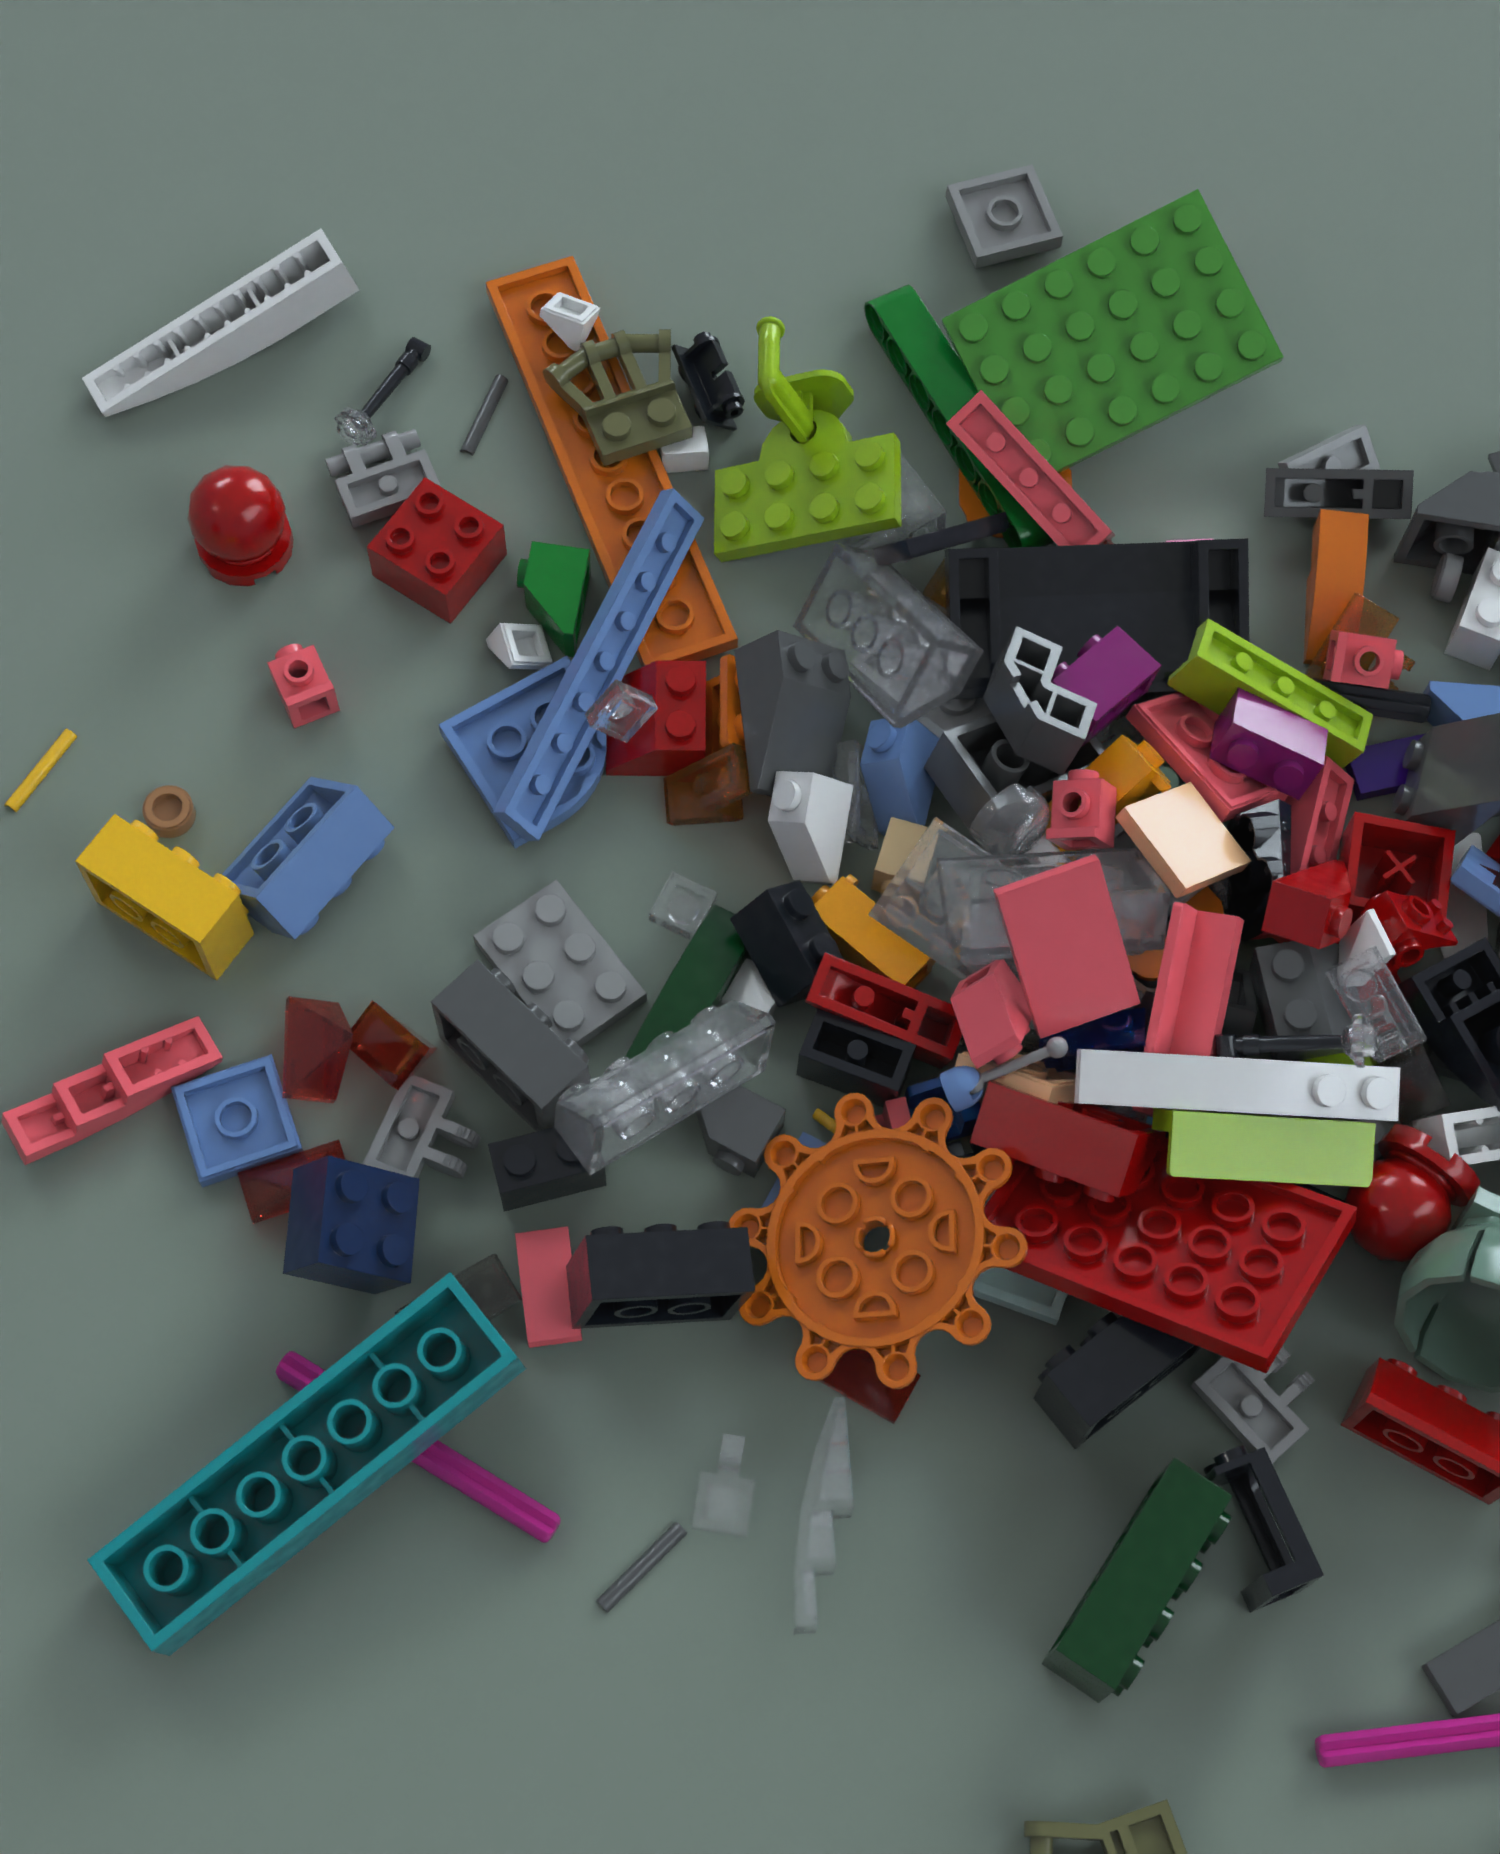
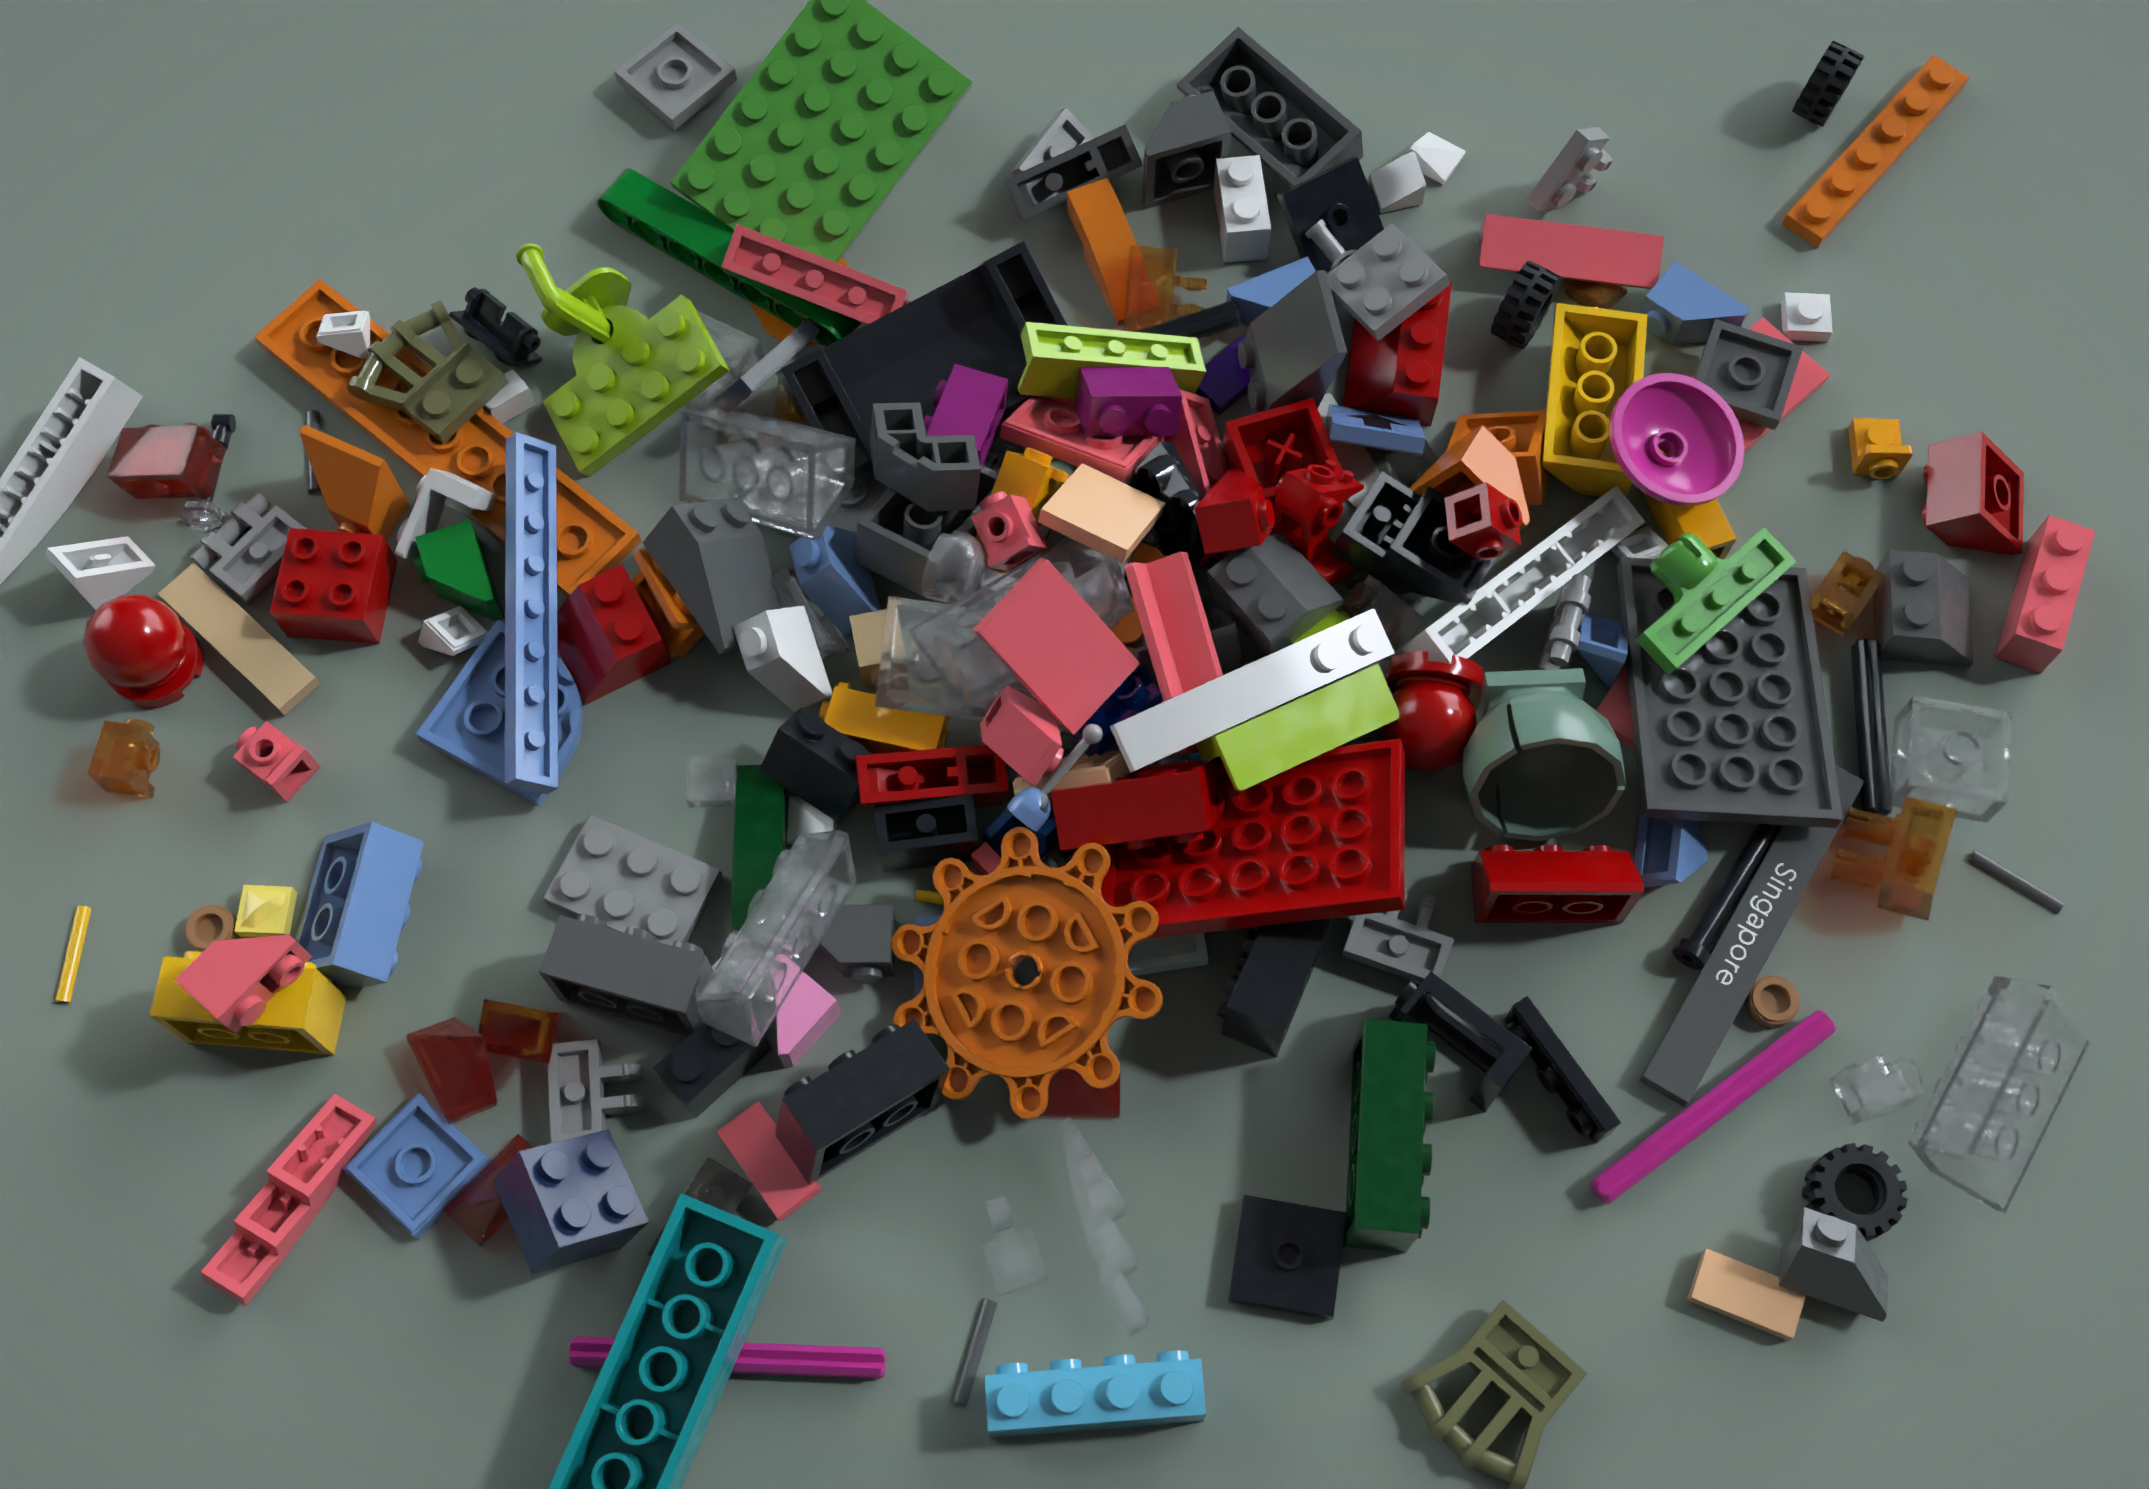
camera: 25 degrees left, 0 degrees up
(172, 867) = (241, 975): none -> coral slope
(175, 615) = (125, 757): none -> clear orange brick
(224, 819) = (265, 911): none -> light yellow tile
(243, 432) = (102, 567): none -> white slope
(329, 557) = (239, 639): none -> tan tile
(349, 361) = (166, 461): none -> clear red brick
(503, 466) = (354, 485): none -> orange slope
(569, 509) = (431, 496): none -> white bracket
(621, 711) = (571, 642): clear plate -> none
(648, 1173) = (804, 1019): none -> bright pink slope
(709, 789) = (681, 670): clear orange slope -> none
(727, 1670) = (1094, 1397): none -> medium azure brick
(982, 1643) = (1287, 1257): none -> black plate
(1344, 1615) = (1561, 1073): none -> black tile
(1345, 654) = (1150, 302): coral brick -> none
(1356, 1041) = (1328, 603): black piece -> none
(1365, 934) = (1294, 528): white slope -> none
(1370, 990) = (1327, 567): clear plate -> none
(1446, 577) = (1195, 200): light grey tile -> none

